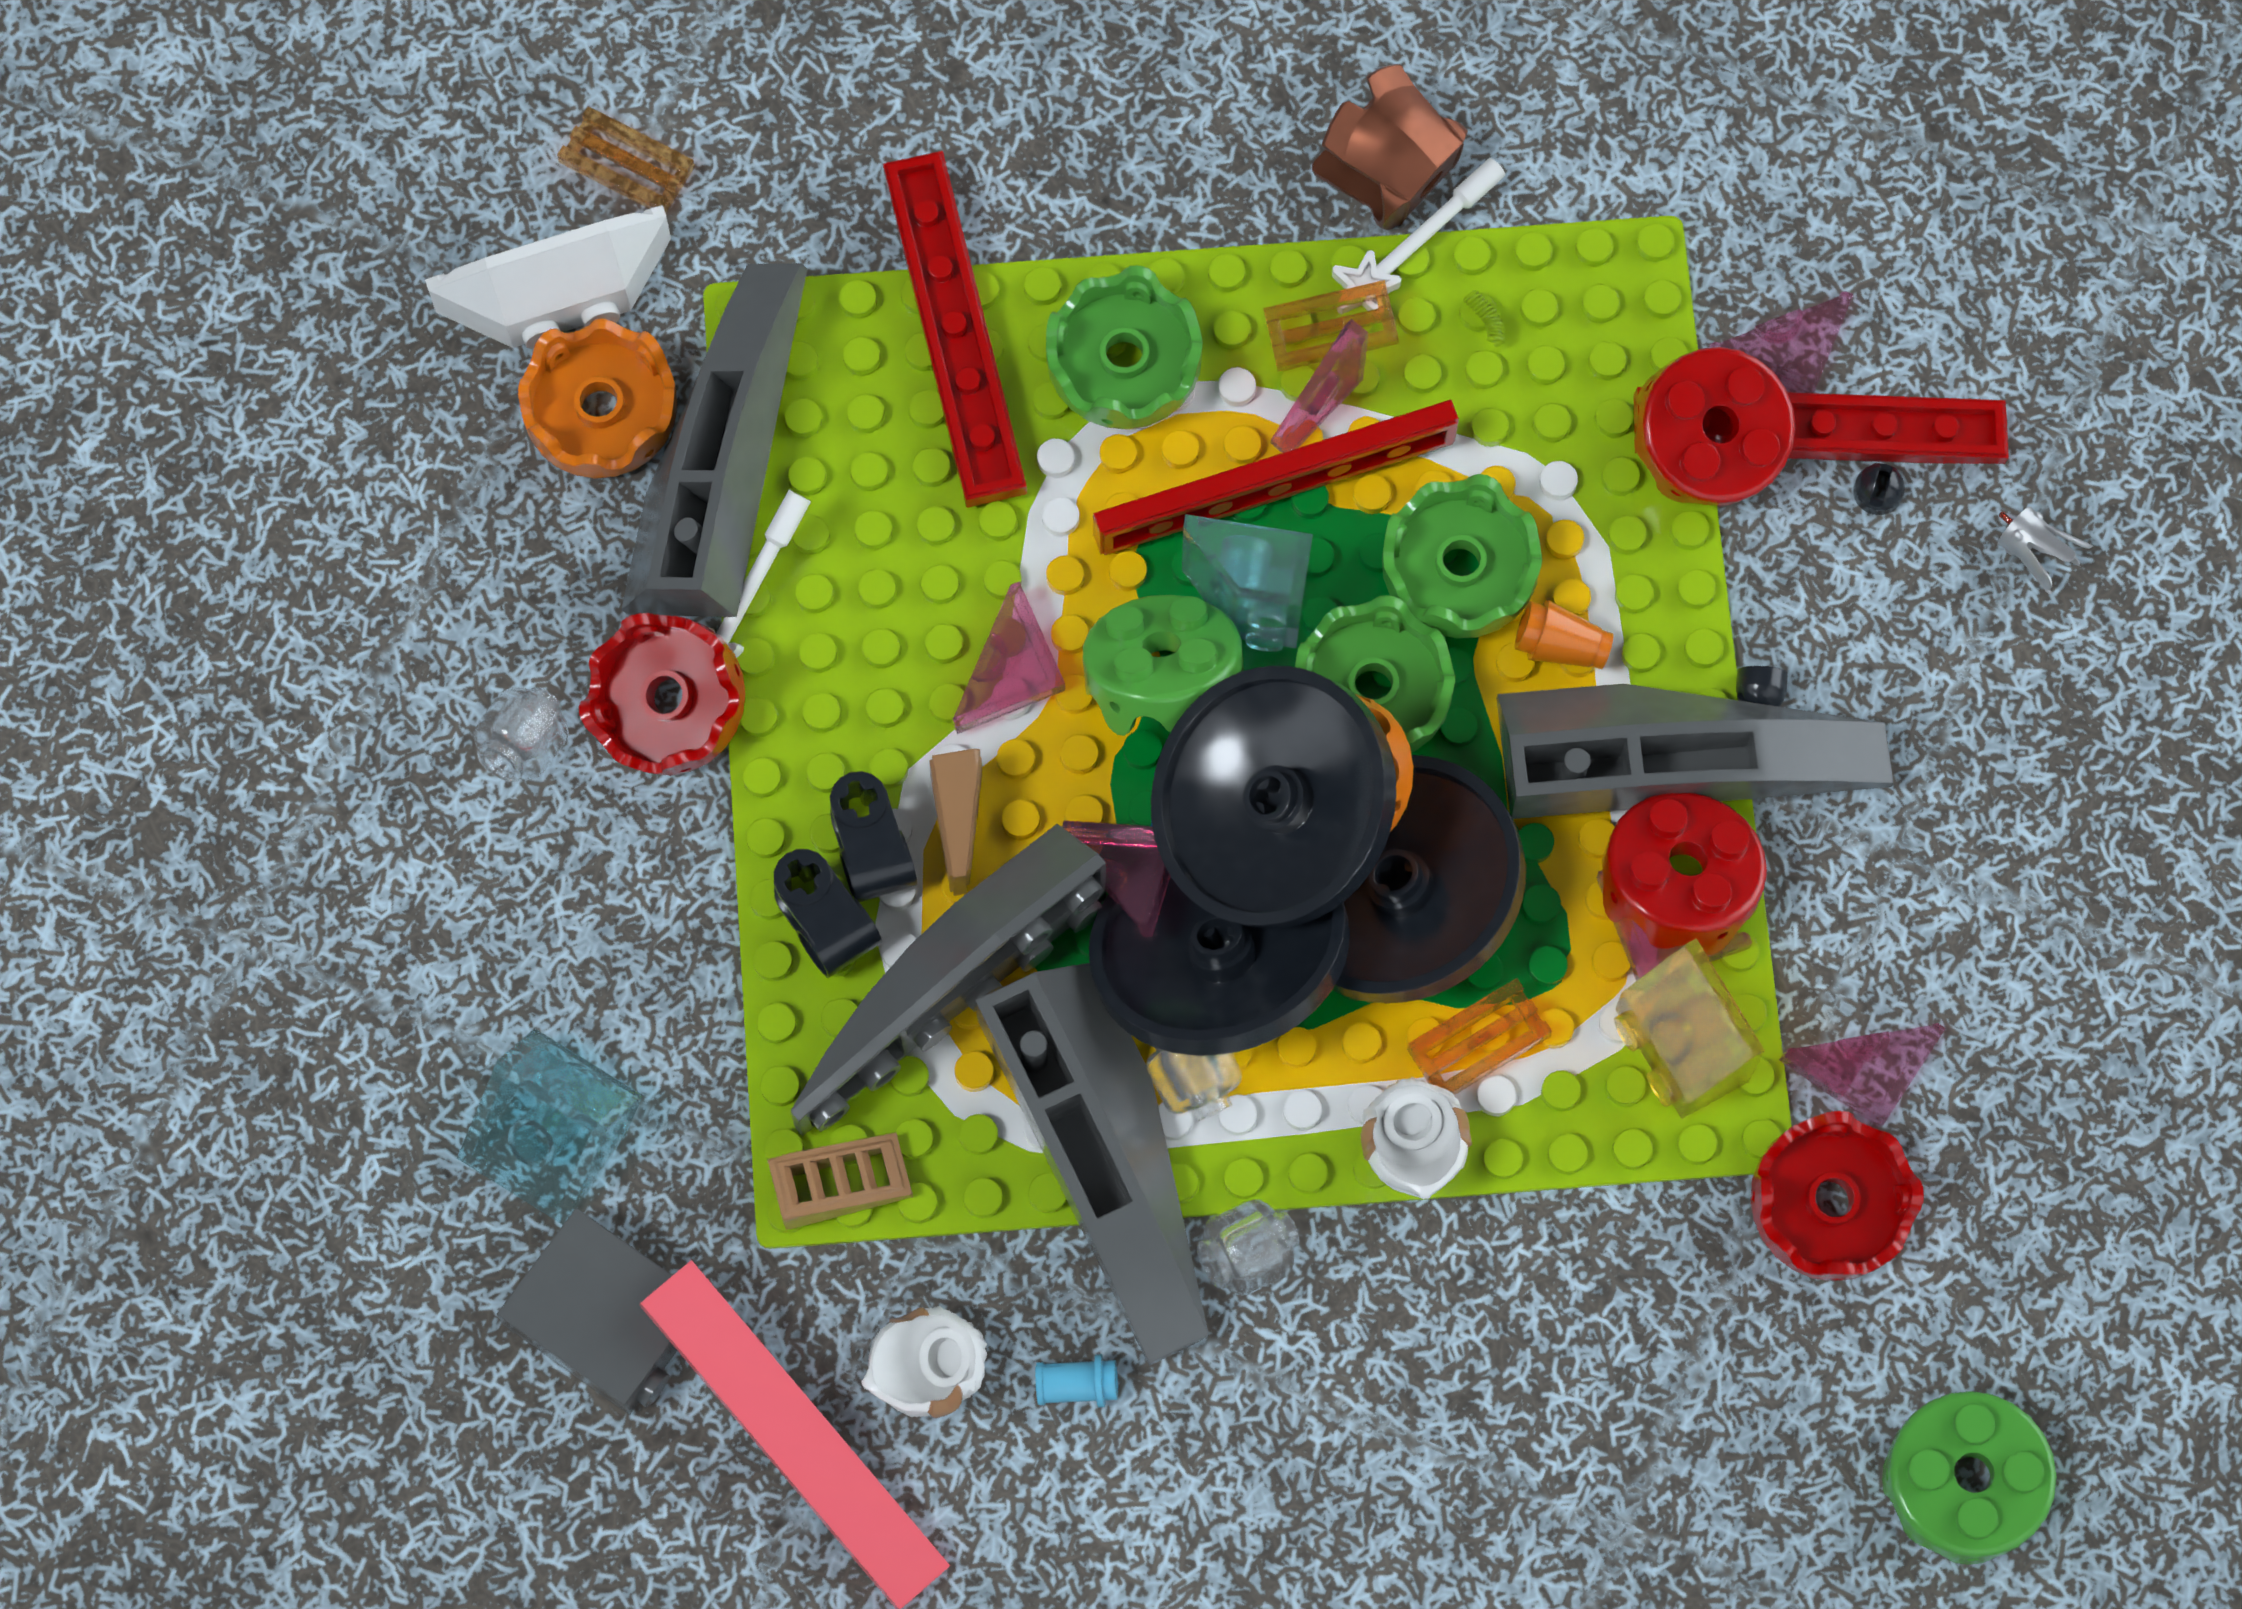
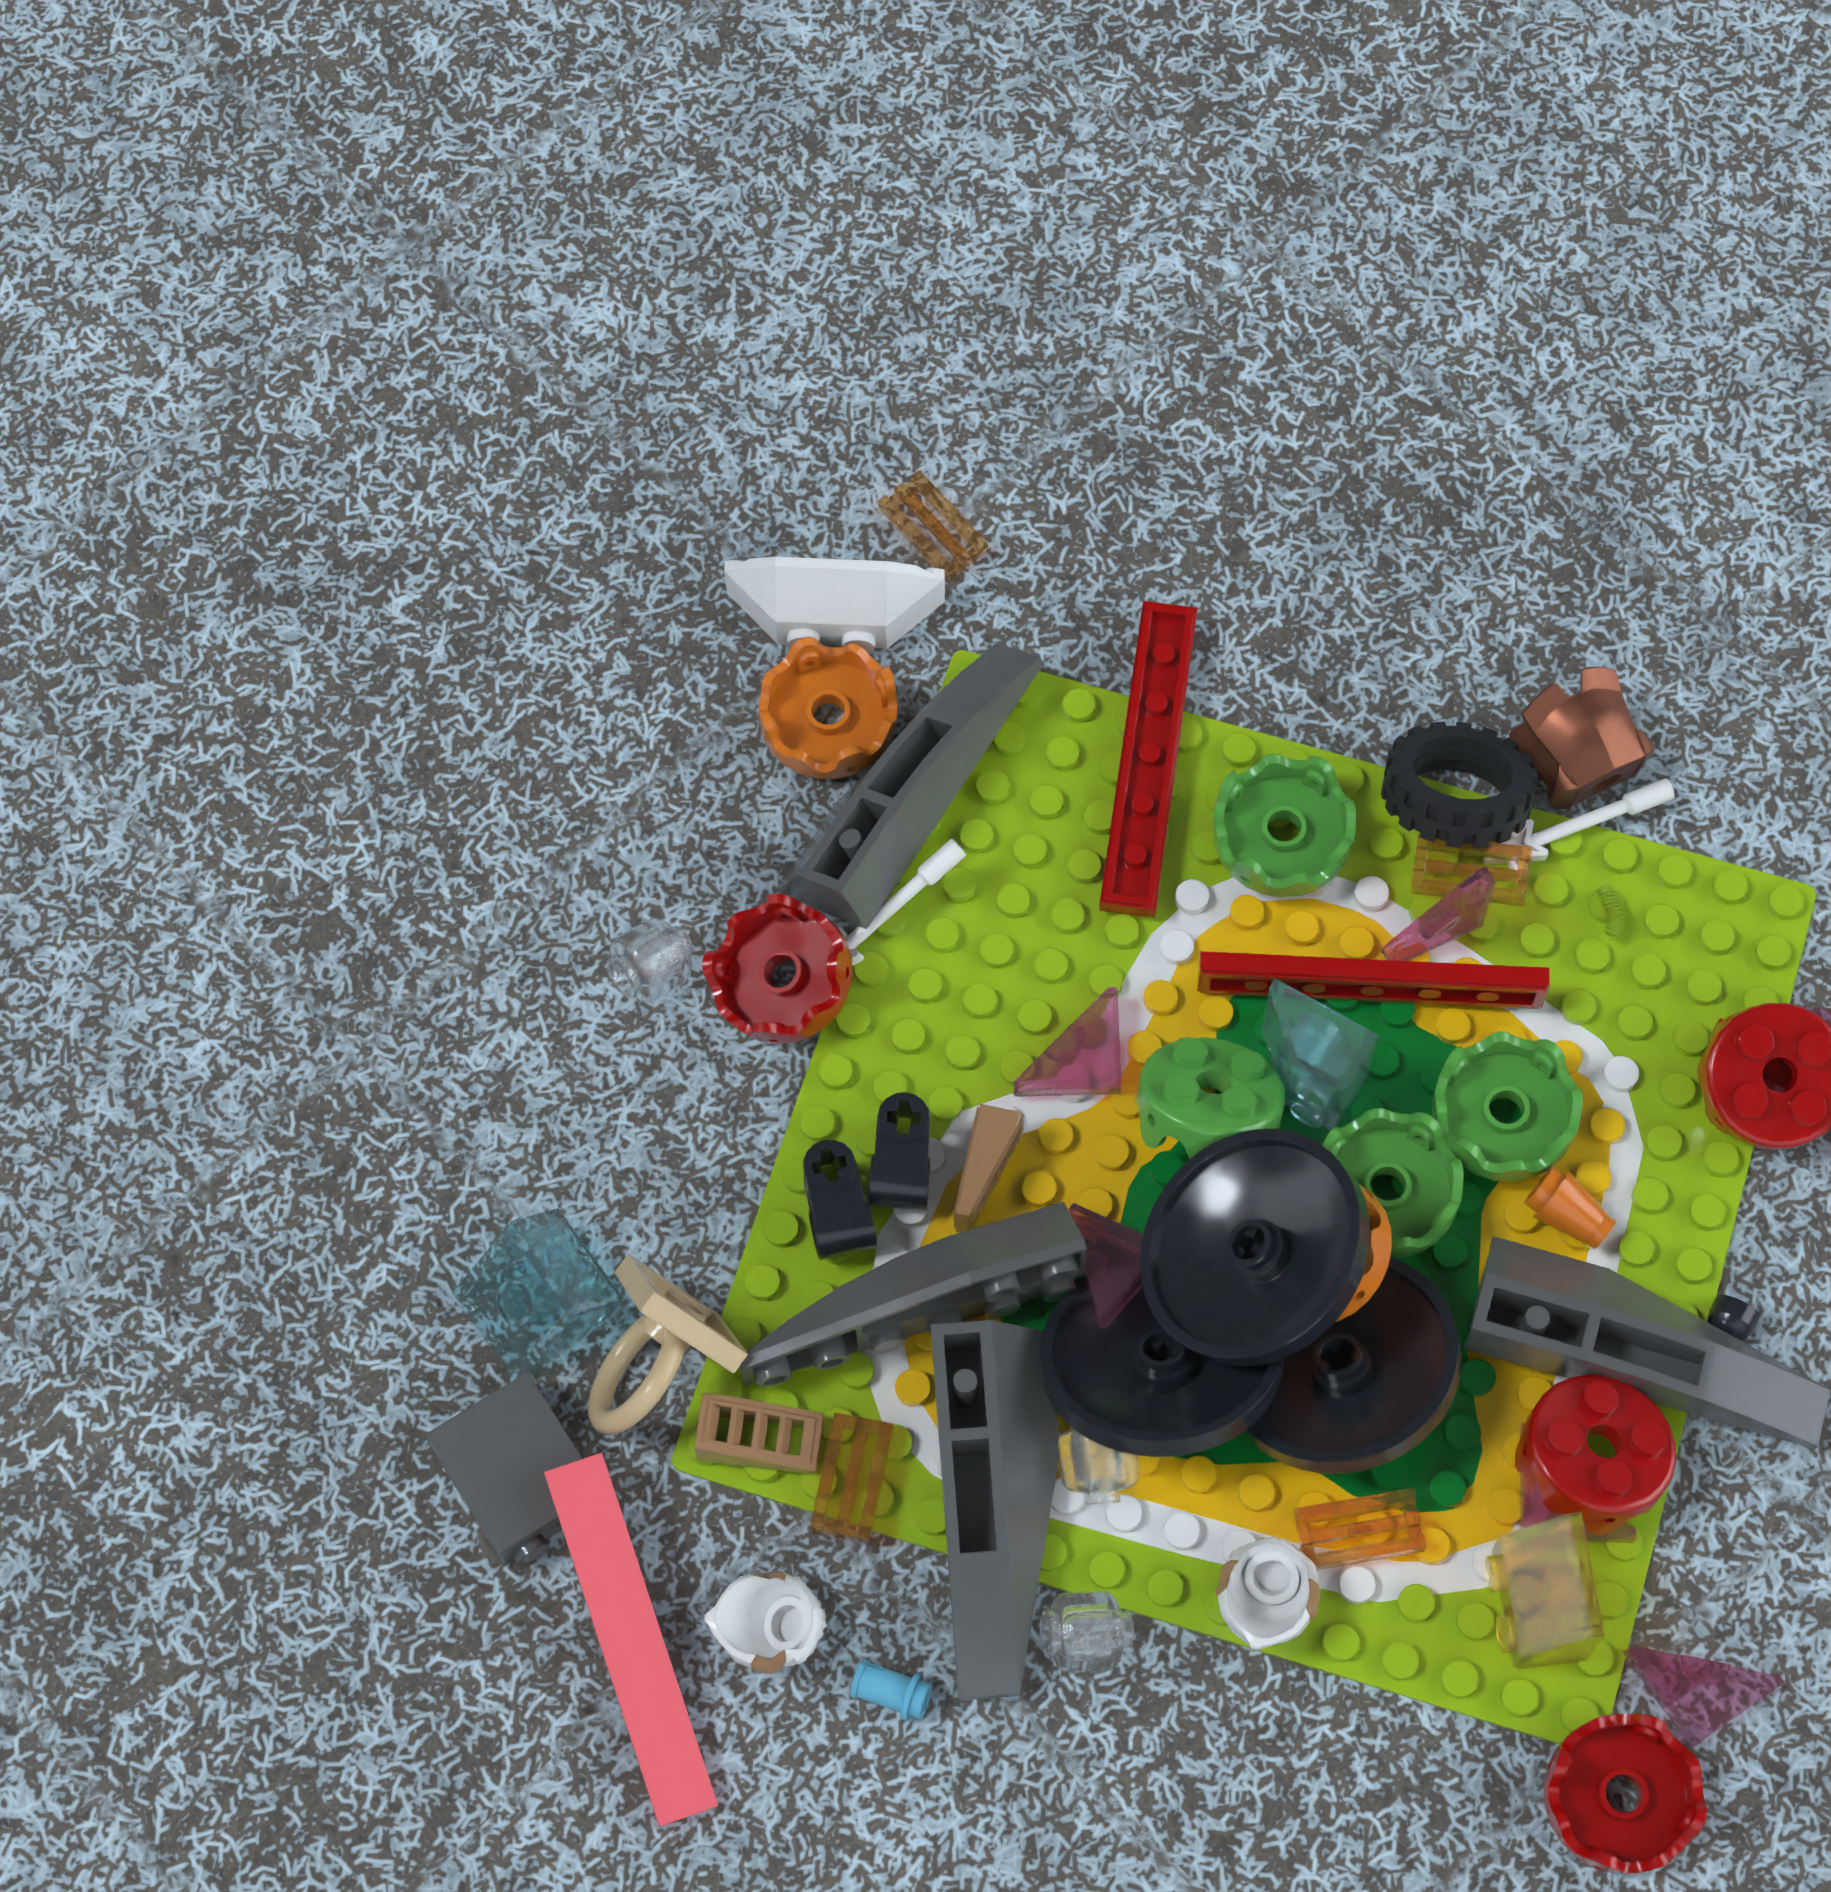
camera: 25 degrees right, 5 degrees down
(710, 1099) = (674, 1322): none -> tan tile
(961, 1240) = (842, 1527): none -> clear orange tile
(1292, 279) = (1447, 816): none -> black tyre

